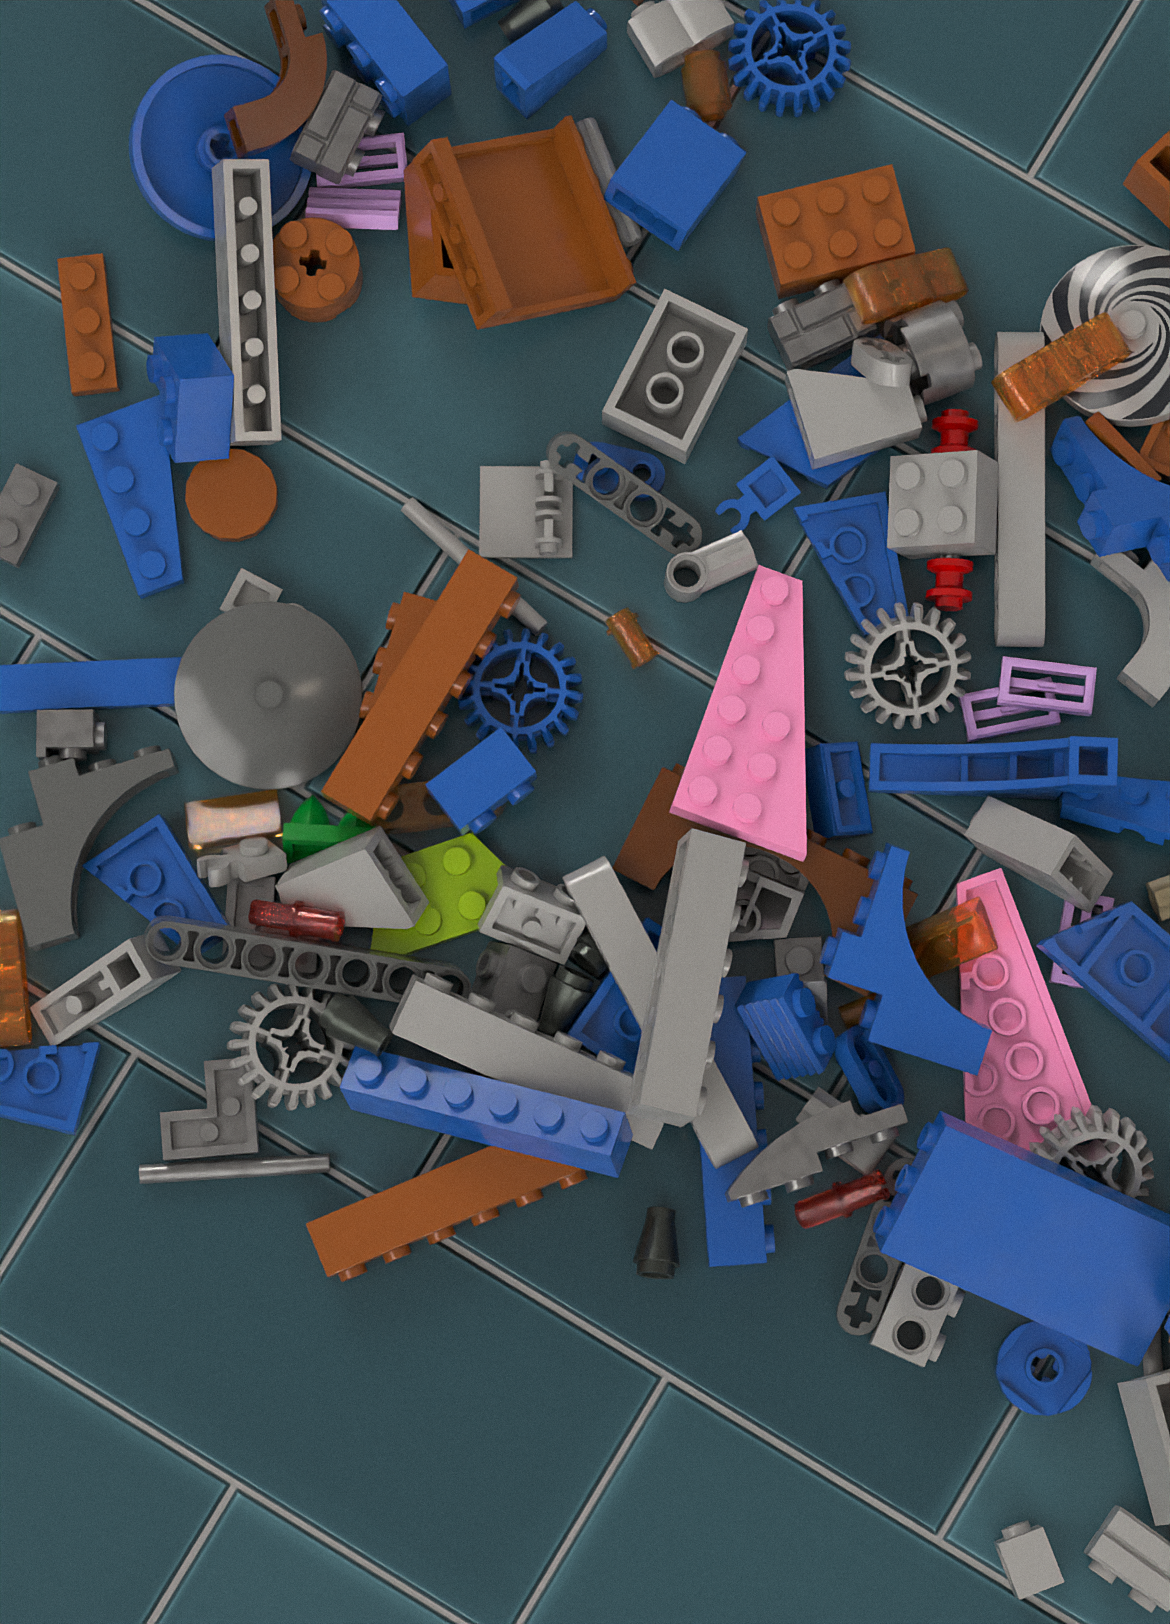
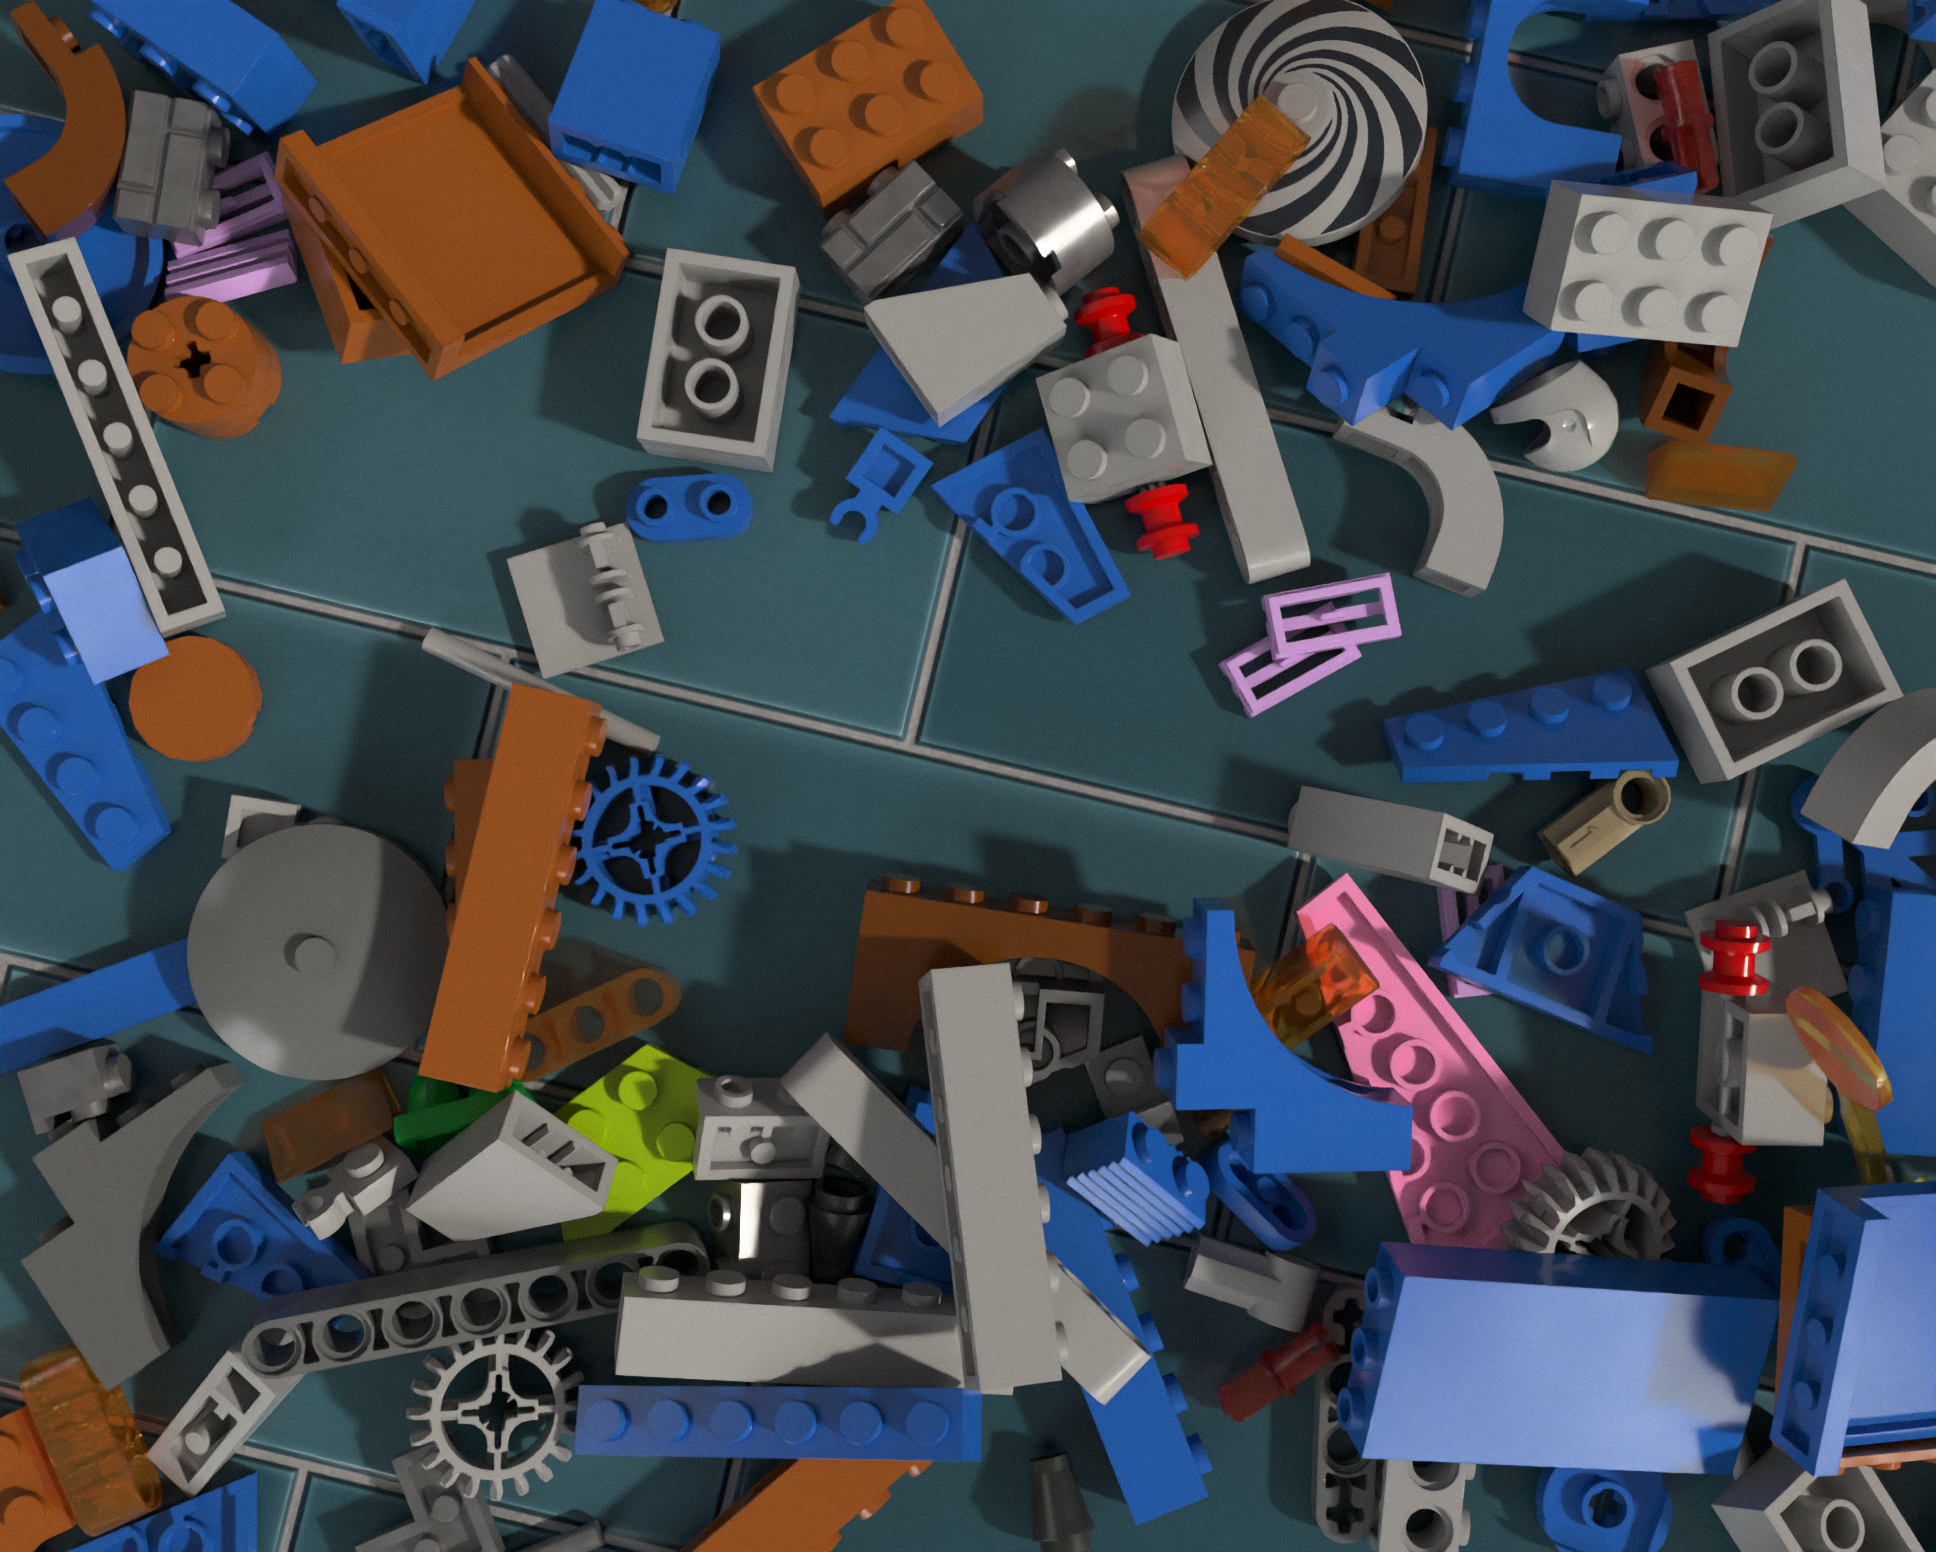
camera: 20 degrees left, 5 degrees up
(298, 919) = (448, 1245): clear red axle -> none
(353, 1024) = (565, 1366): pearl dark grey cone -> none
(483, 782) = (633, 988): blue brick -> none
(626, 490) = (700, 545): dark grey beam -> none
(631, 637) = (773, 722): clear orange pin -> none
(712, 564) = (849, 592): light grey piece -> none
(751, 743) = (972, 823): bright pink wing -> none
(794, 1154) = (1198, 1353): flat silver slope -> none
(837, 790) = (1101, 837): blue slope -> none
(881, 362) = (985, 256): light grey beam -> none
(905, 285) = (981, 145): clear orange beam -> none
(930, 663) = (1167, 639): light grey gear -> none
(996, 769) = (1306, 746): blue arch -> none

